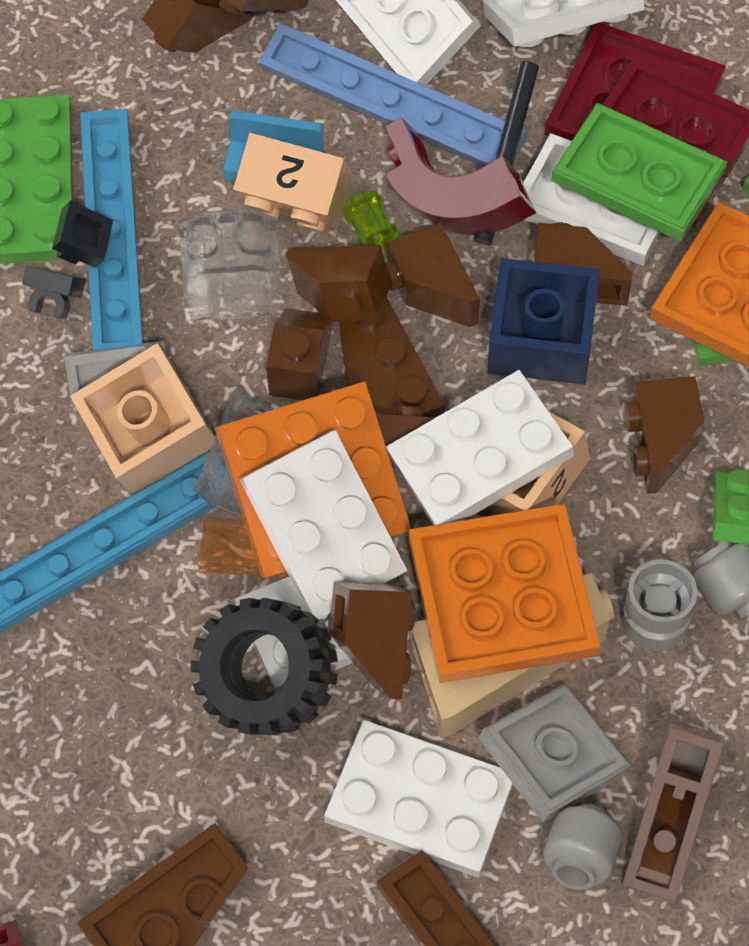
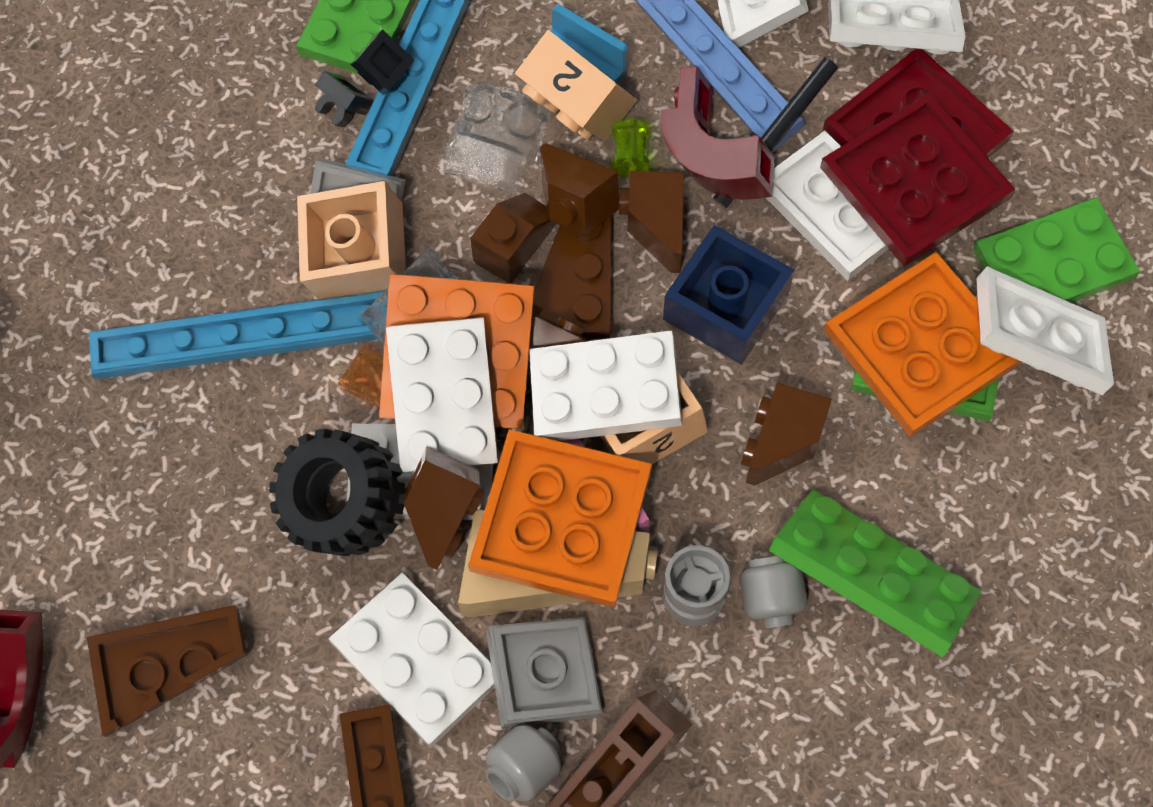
camera: 25 degrees right, 5 degrees up
(579, 247) = (790, 243): reddish brown slope -> none
(639, 171) = (876, 197): bright green tile -> none

